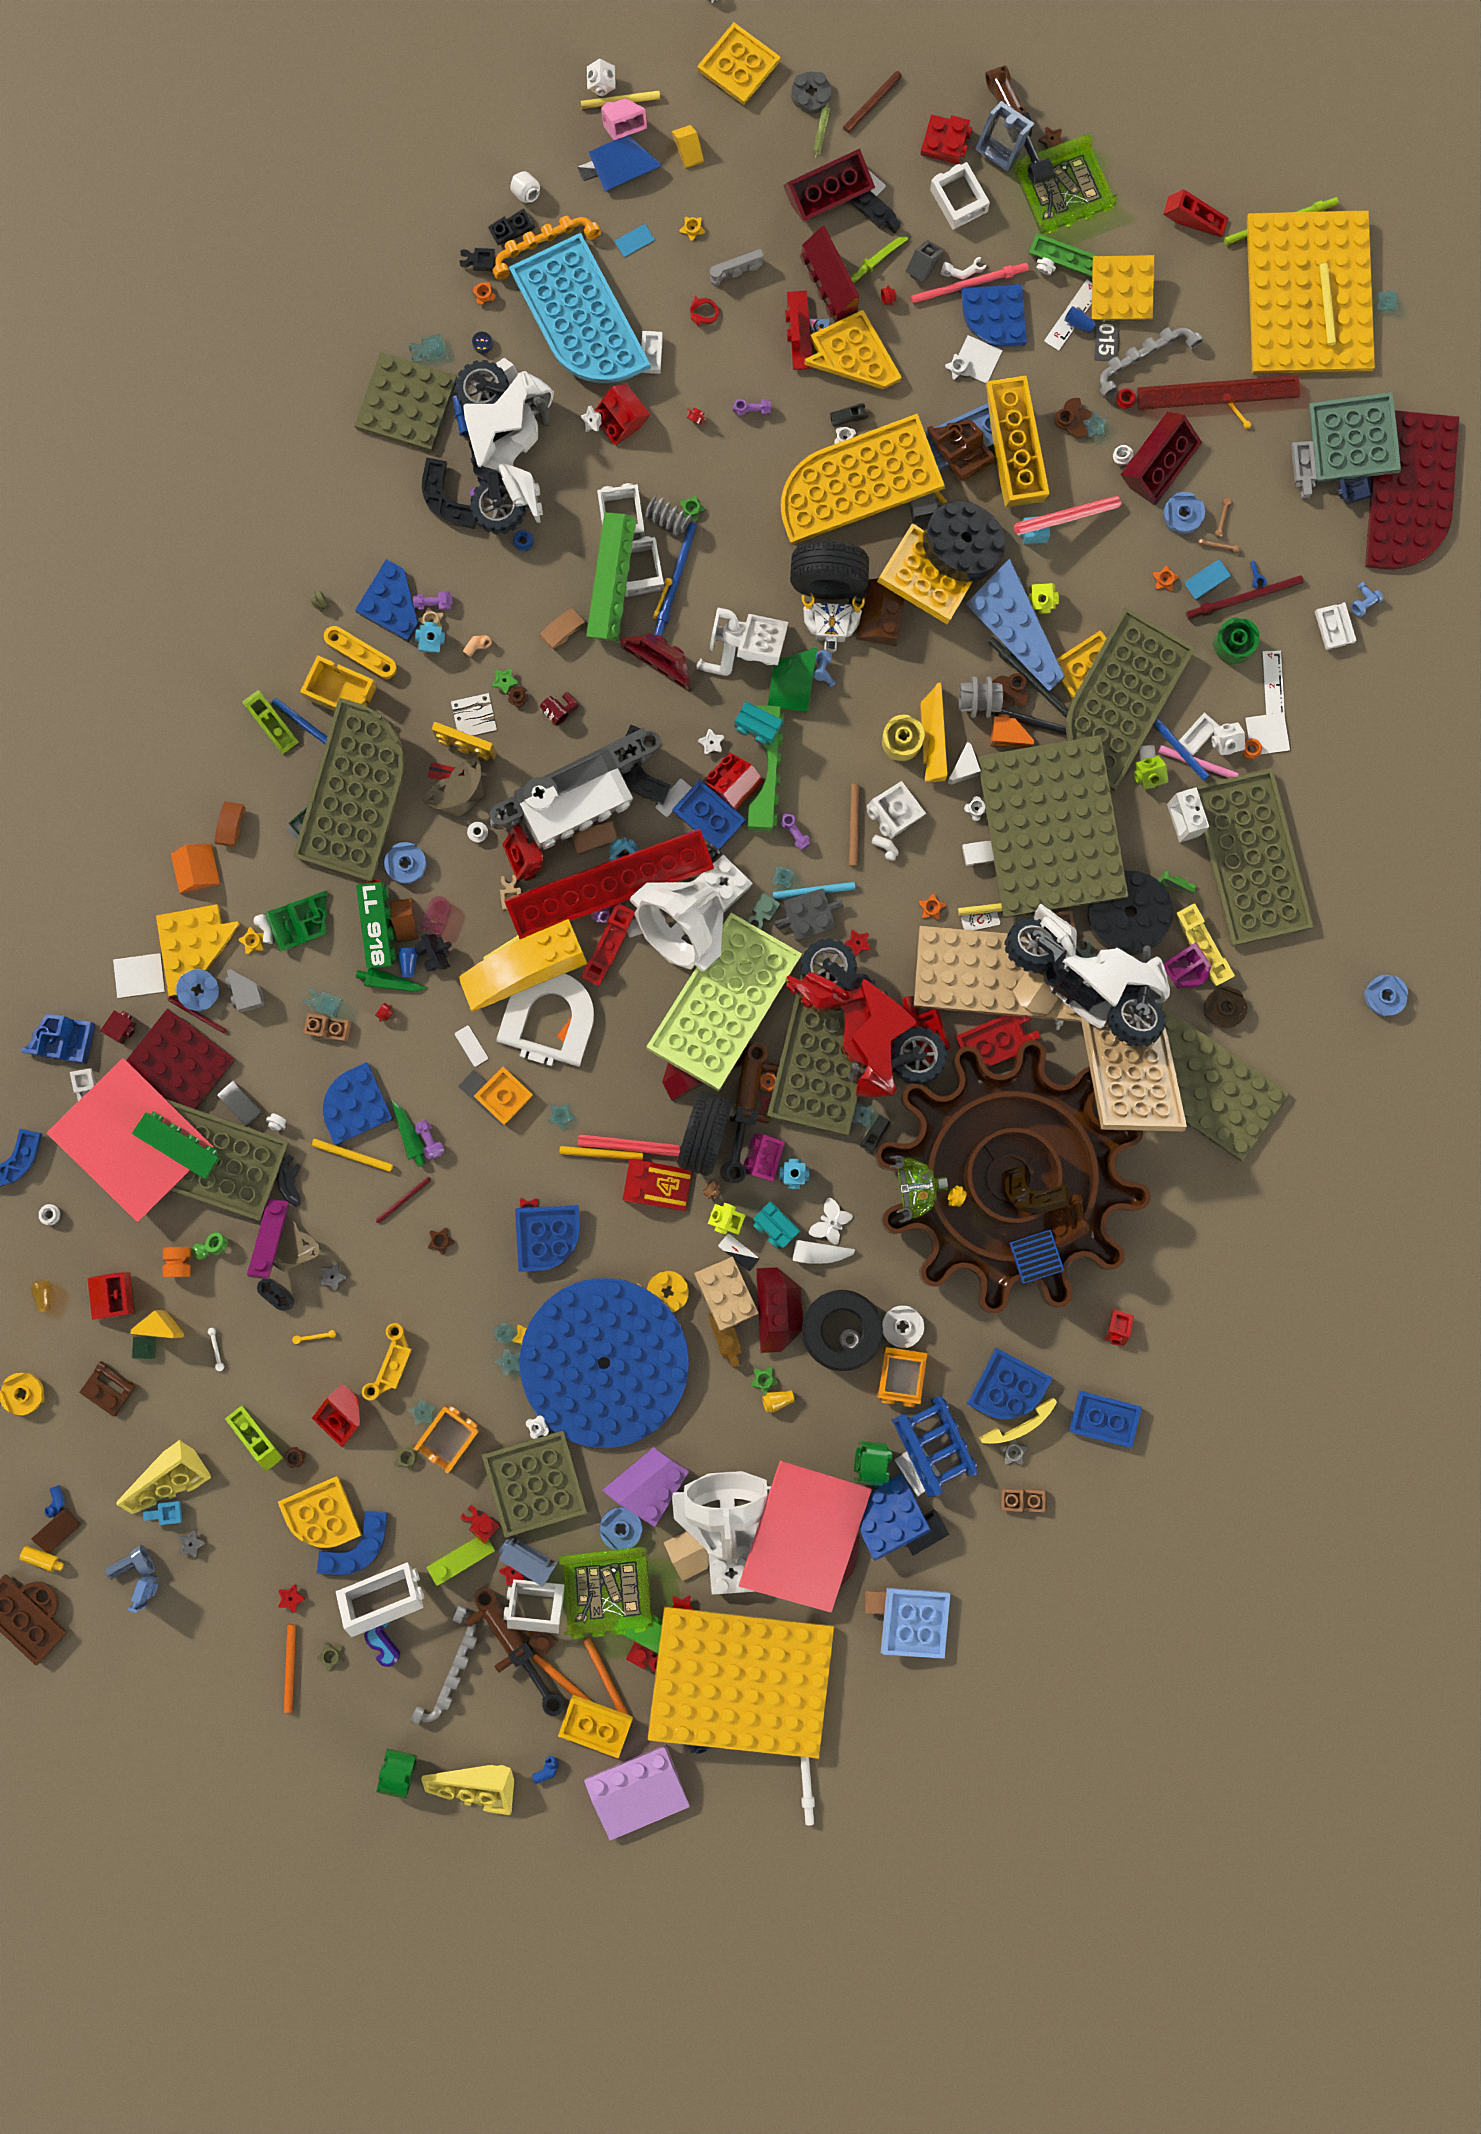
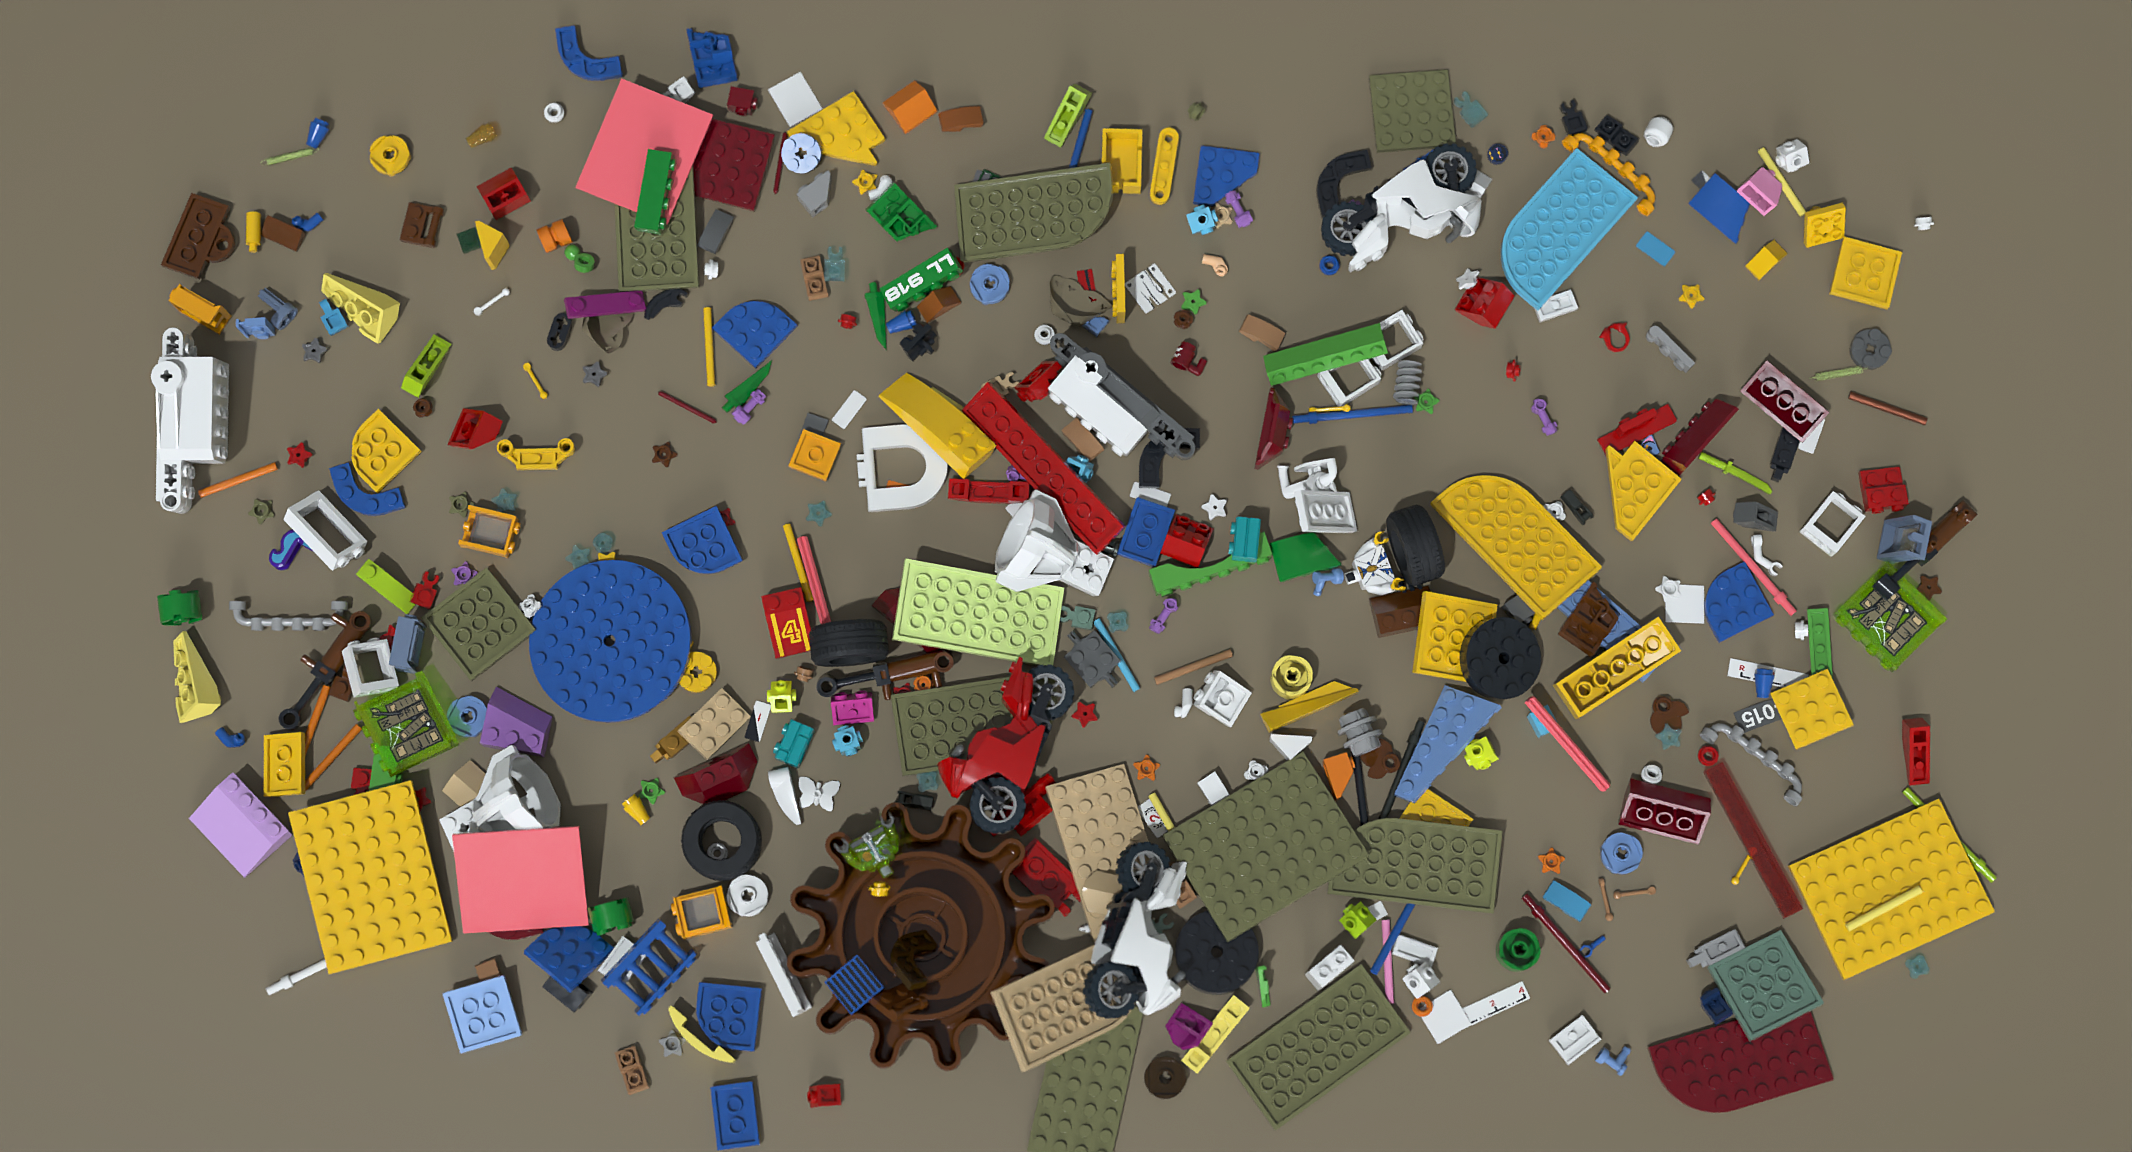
camera: 65 degrees right, 5 degrees down
(99, 1643) = (199, 309): none -> light orange window
(209, 1694) = (190, 417): none -> white piece
(439, 908) = (961, 330): clear pink plate -> none
(473, 1476) = (459, 579): none -> medium lavender plate
(489, 780) = (1096, 325): none -> medium blue tile
(678, 77) = (1821, 221): none -> yellow plate
(991, 1322) = (785, 980): none -> white fence

